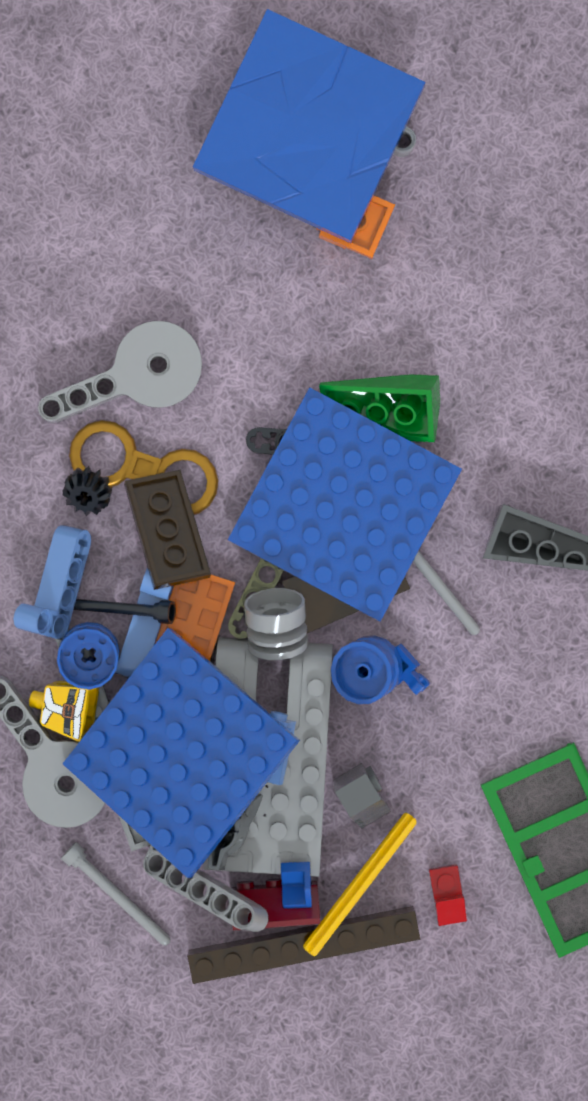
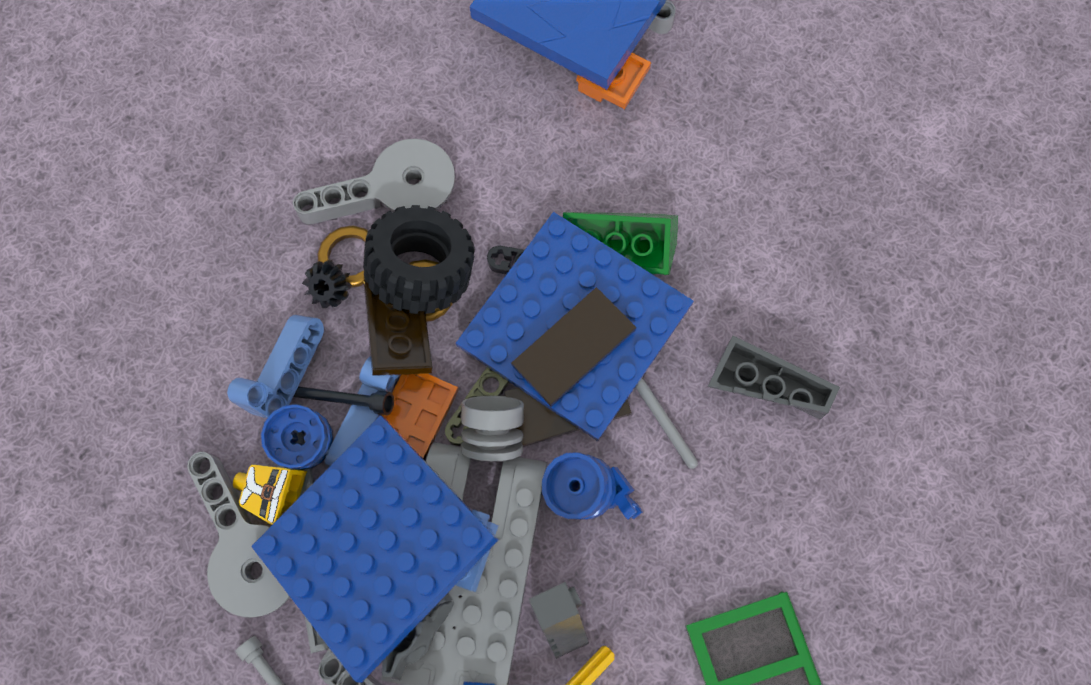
camera: 15 degrees right, 15 degrees down
(184, 426) = (414, 286): none -> black tyre
(347, 533) = (573, 346): none -> dark brown tile

